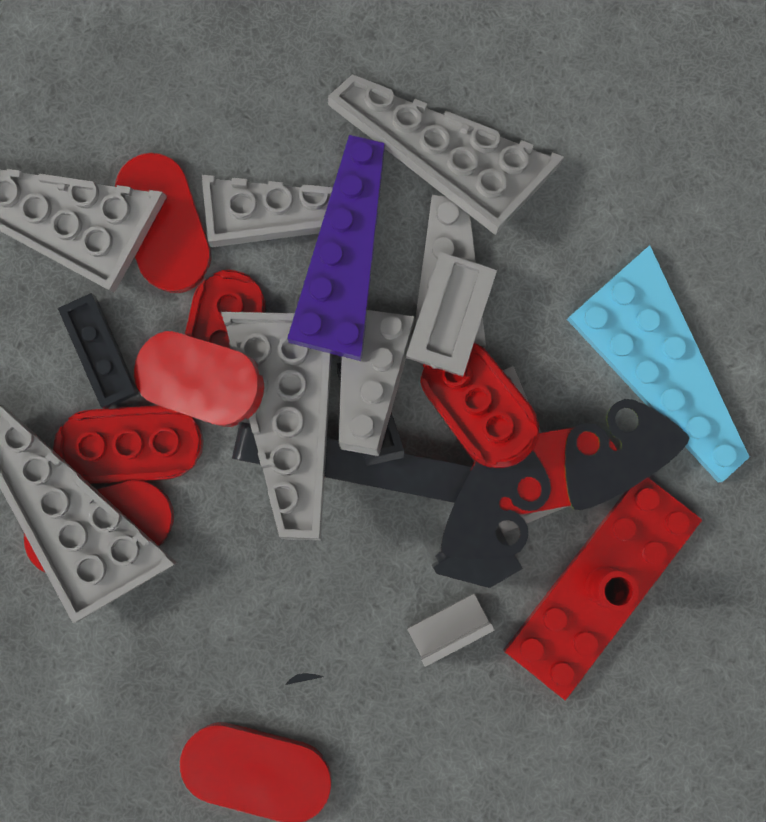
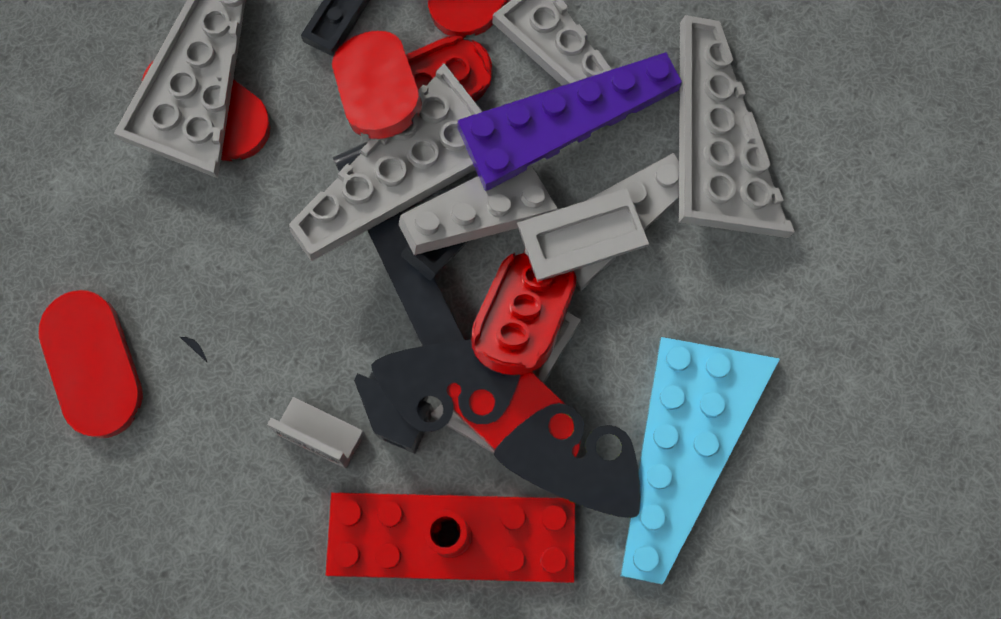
camera: 55 degrees right, 10 degrees down
(129, 444) = (289, 79): red tile -> none

